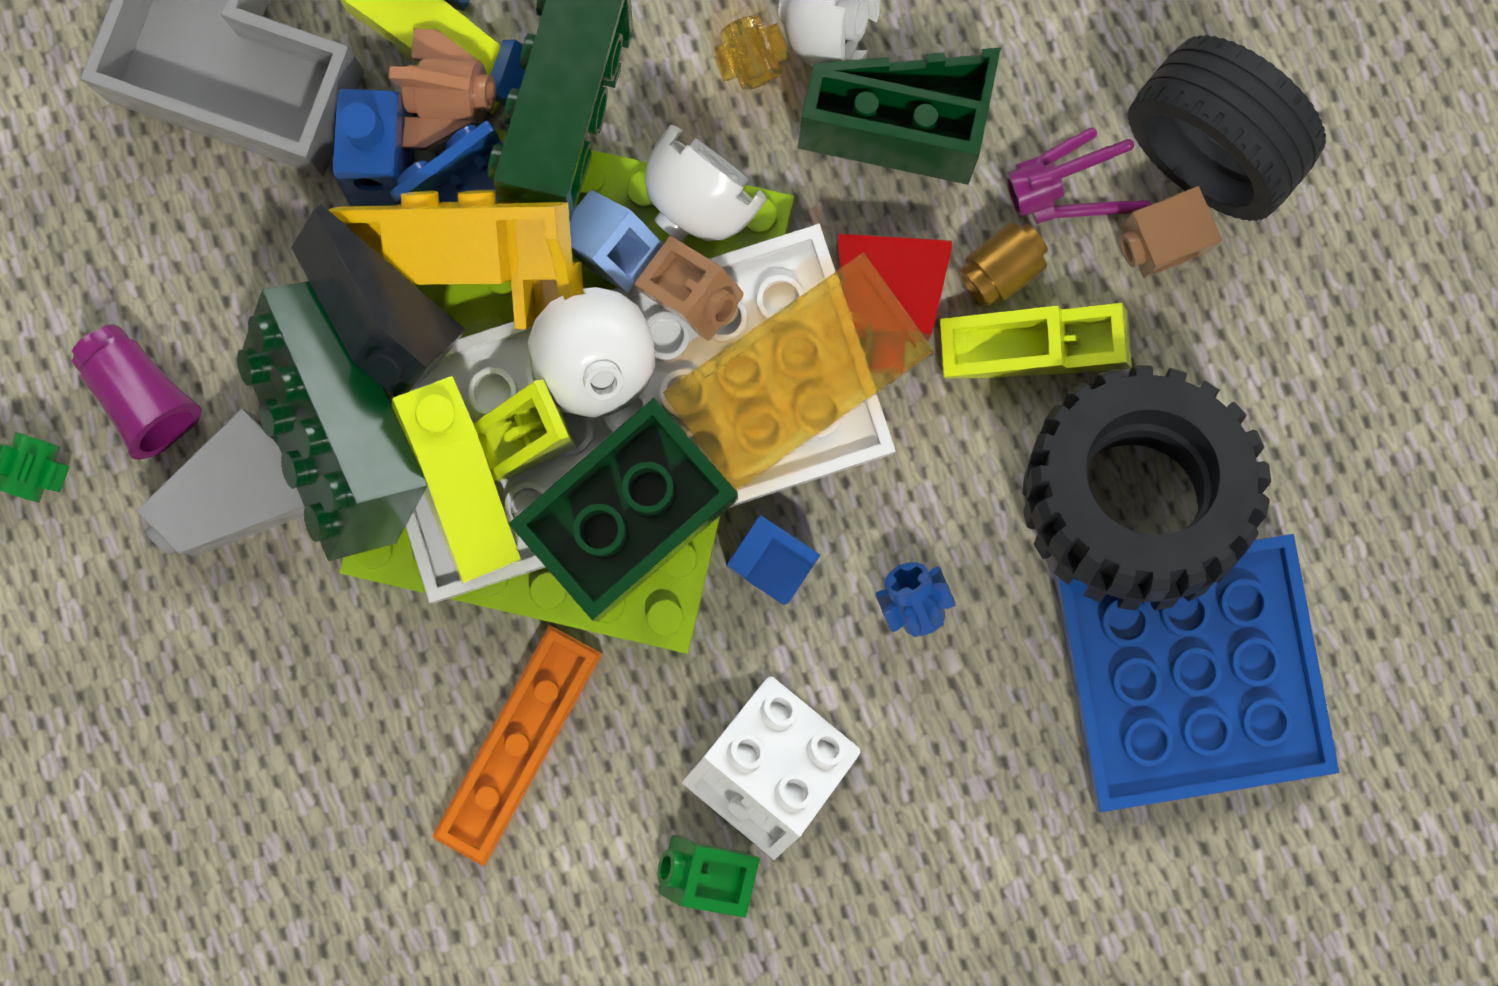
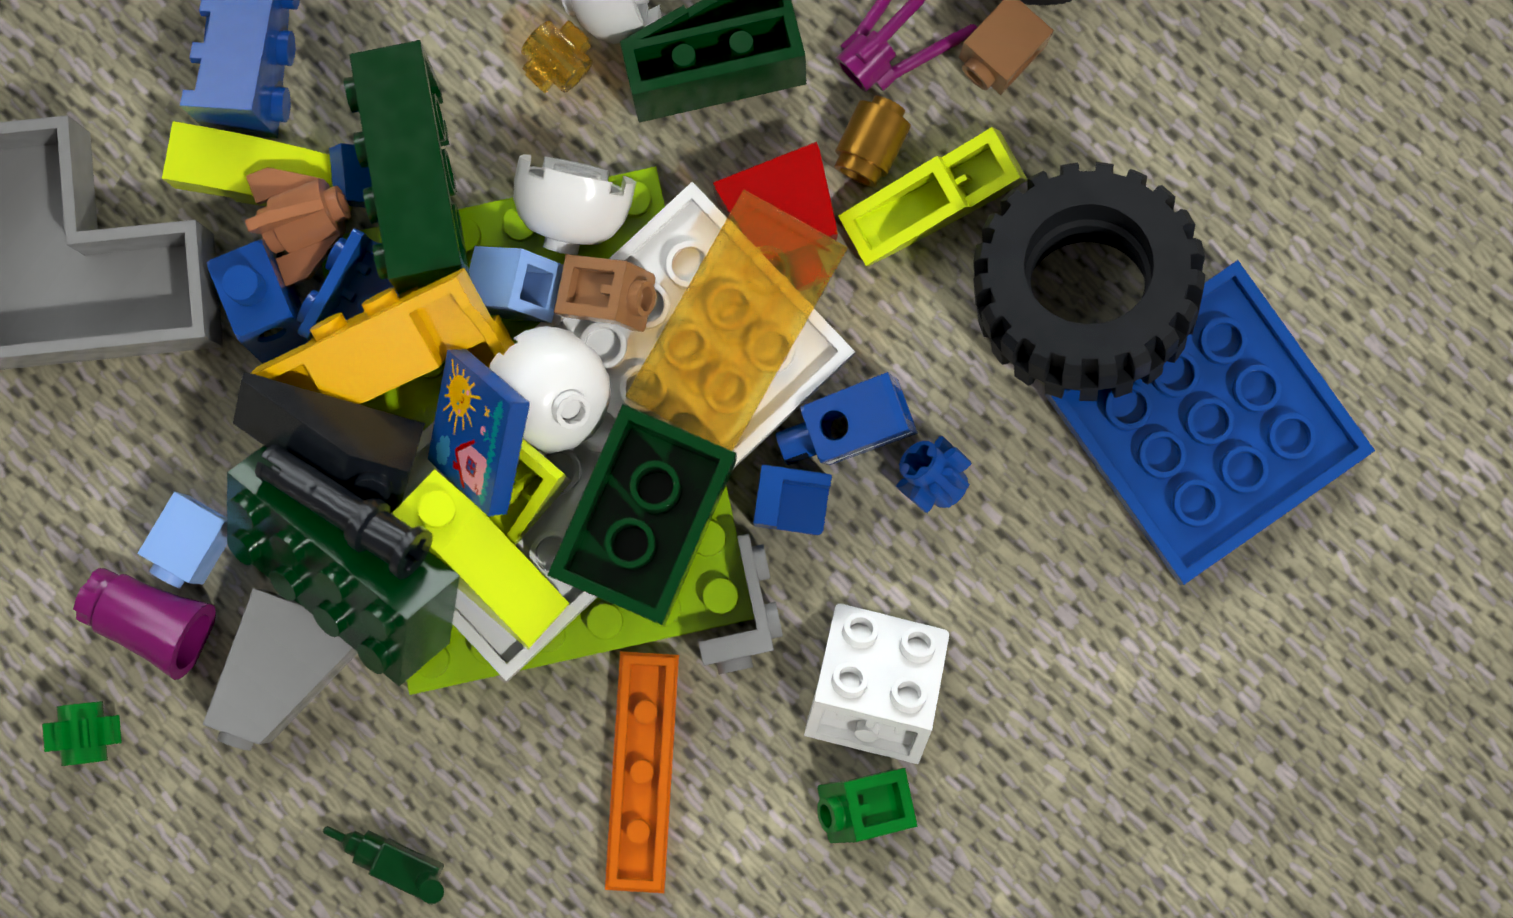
camera: 25 degrees left, 0 degrees up
(202, 336) = (185, 541): none -> light blue brick
(251, 721) = (393, 863): none -> dark green piece
(362, 395) = (365, 523): none -> black pin
(508, 360) = (478, 431): none -> blue tile
(655, 675) = (735, 651): none -> light grey bracket
(886, 517) = (875, 418): none -> blue torso

